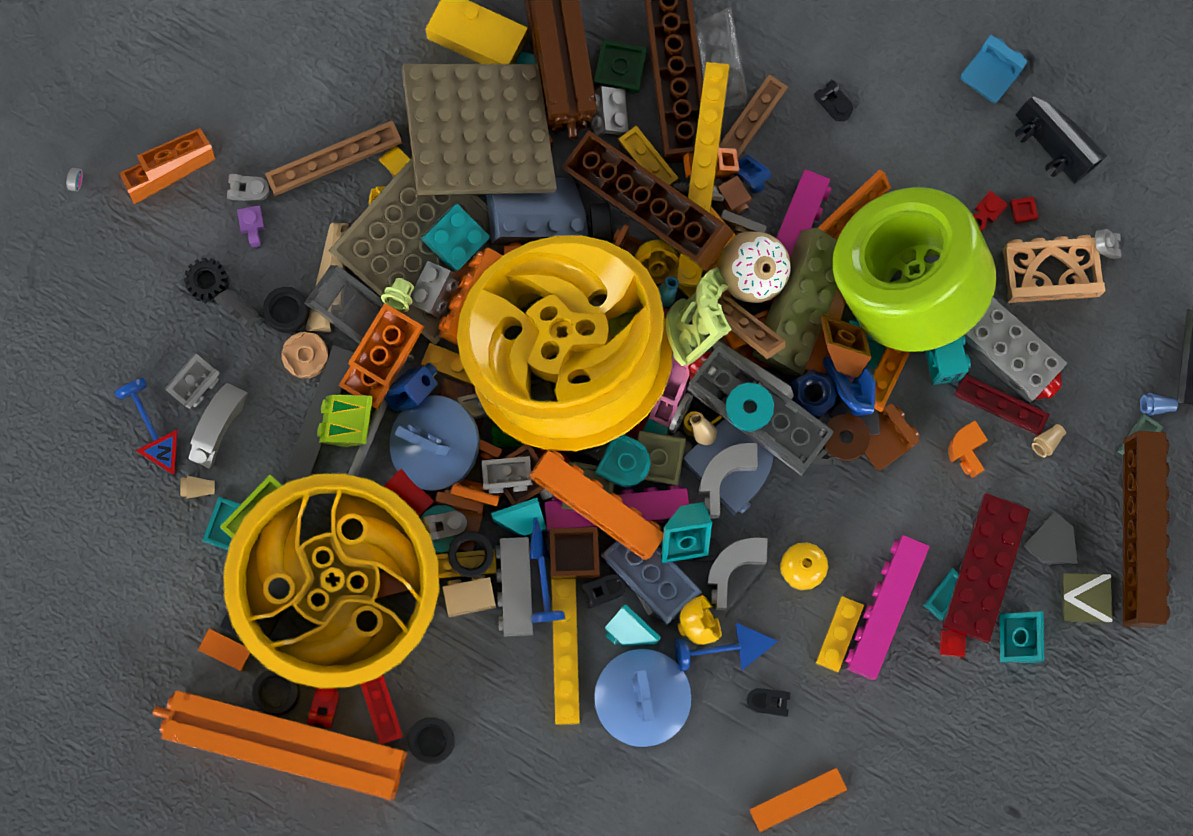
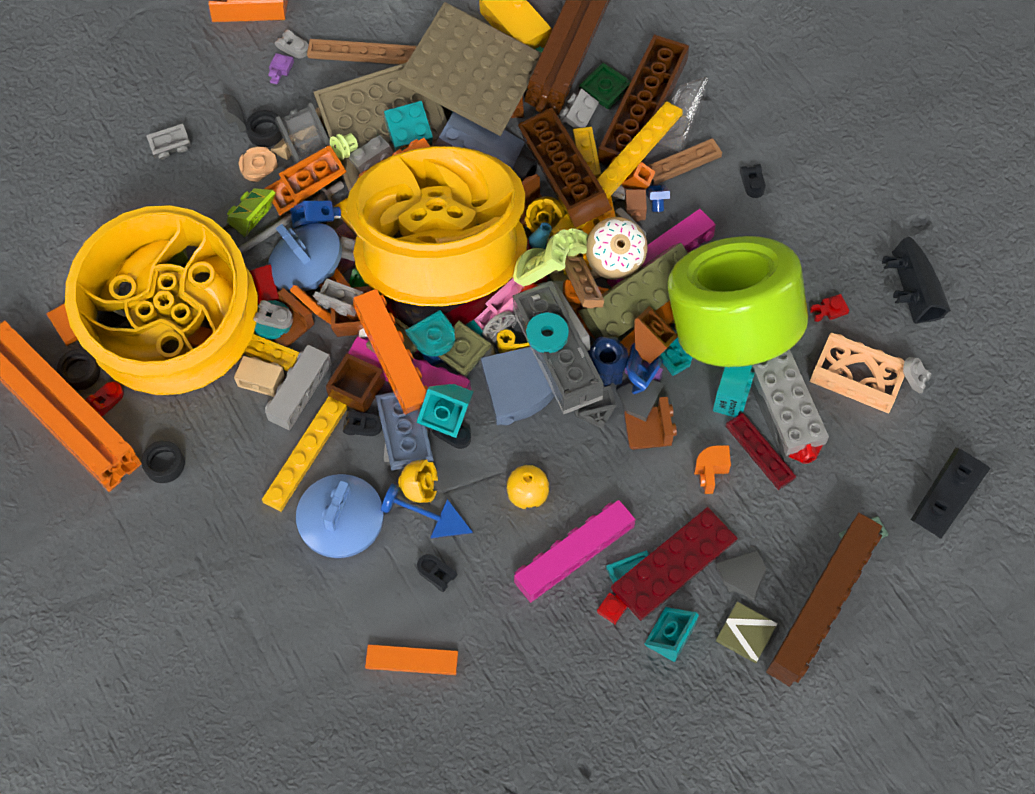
camera: 35 degrees right, 15 degrees down
(161, 450) = (119, 176): blue piece -> none
(196, 487) = (119, 206): tan cone -> none
(199, 268) = (224, 77): black tyre -> none
(214, 422) = (161, 169): light grey arch -> none
(381, 710) = (143, 417): red plate -> none
(475, 536) = (278, 328): black tyre -> none
(520, 518) = (332, 337): teal slope -> none
(539, 551) = (329, 362): blue piece -> none
(630, 630) = (360, 458): slope -> none
(703, 430) = (506, 342): tan cone -> none
(732, 459) = (501, 375): light grey arch -> none
(737, 554) = (470, 451): light grey arch -> none
(839, 634) = (524, 552): yellow plate -> none
(859, 431) = (620, 396): reddish brown tile -> none
(887, 375) = (680, 378): orange tile -> none
(994, 69) = (893, 212): dark azure bracket -> none
(1024, 210) = (861, 321): red tile -> none
(1048, 441) = (783, 494): tan cone -> none
(1156, 404) = (892, 513): medium blue cone -> none

